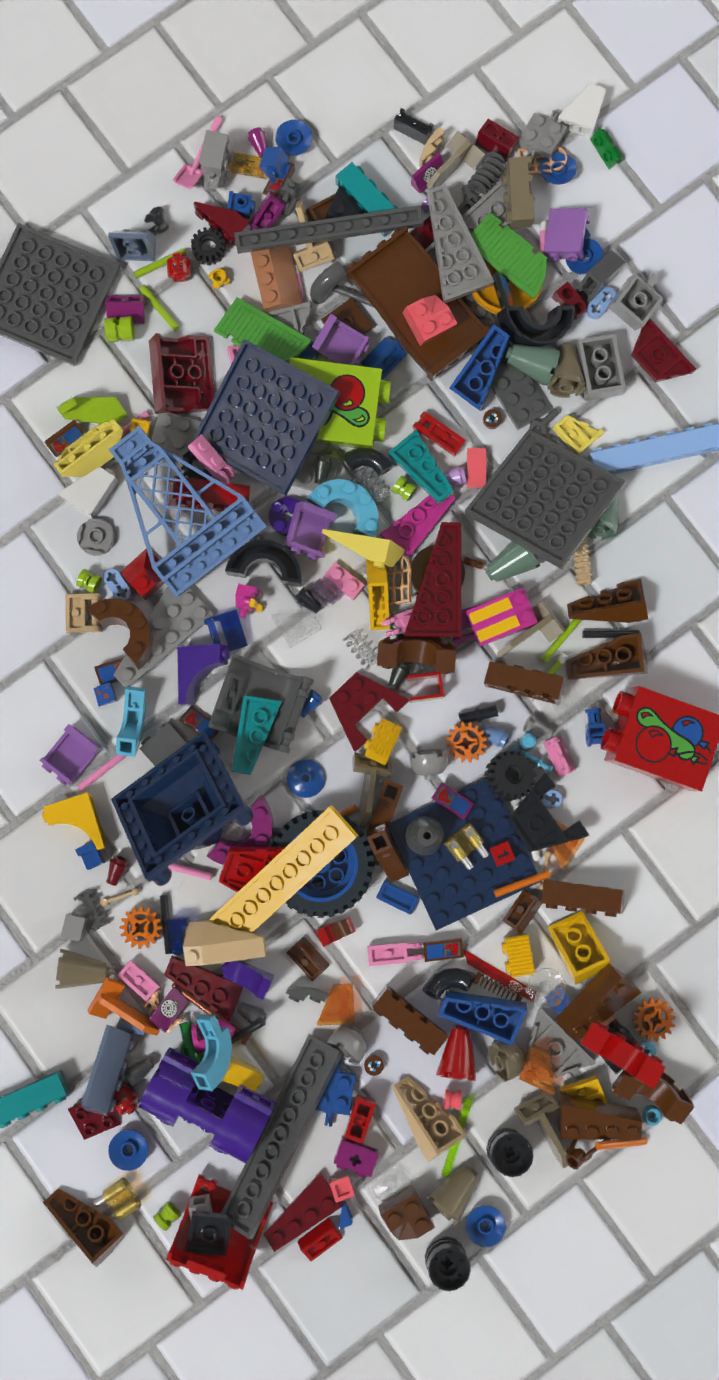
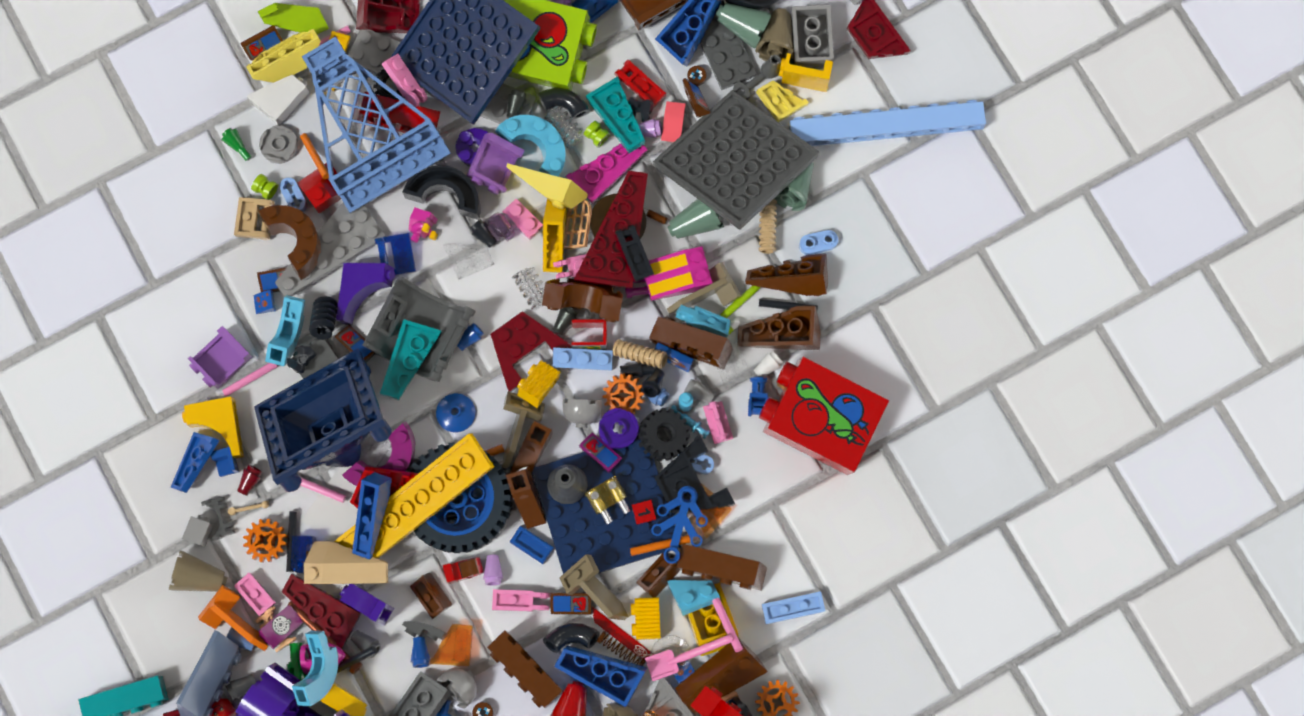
camera: 10 degrees right, 5 degrees down
(51, 538) = (233, 139): none -> green cone
(60, 858) = (194, 459): none -> blue wing
(133, 544) = (314, 155): none -> orange bar
(155, 742) = (306, 354): none -> black piece
(165, 703) = (323, 317): none -> black piece
(241, 892) = (370, 513): none -> blue slope
(306, 1018) = (420, 655): none -> blue cone
(364, 928) = (492, 571): none -> lavender cone
(421, 711) = (582, 359): none -> light blue plate
(447, 457) = (645, 107): none -> black piece
(454, 924) = (583, 576): none -> dark tan piece
(459, 603) = (634, 253): none -> black plate
(476, 700) = (640, 353): none -> tan piece
(477, 777) = (619, 417): none -> dark purple plate
(494, 729) = (653, 384): none -> black cone
(495, 442) = (695, 98): none -> reddish brown slope
(508, 698) = (676, 358): none -> blue tile
(535, 659) = (704, 320): none -> medium azure hinge
(539, 859) = (681, 520): none -> blue plant
(543, 997) = (665, 663): none -> bright pink piece
(559, 926) = (692, 594): none -> medium azure wing
(564, 402) = (771, 67): none -> dark grey cone
(599, 407) = (804, 76): none -> yellow panel
(599, 954) = (727, 624): none -> bright pink bar
(600, 694) = (768, 364): none -> white cone
(632, 568) = (819, 243): none -> light blue plate
(656, 926) = (793, 607): none -> light blue plate

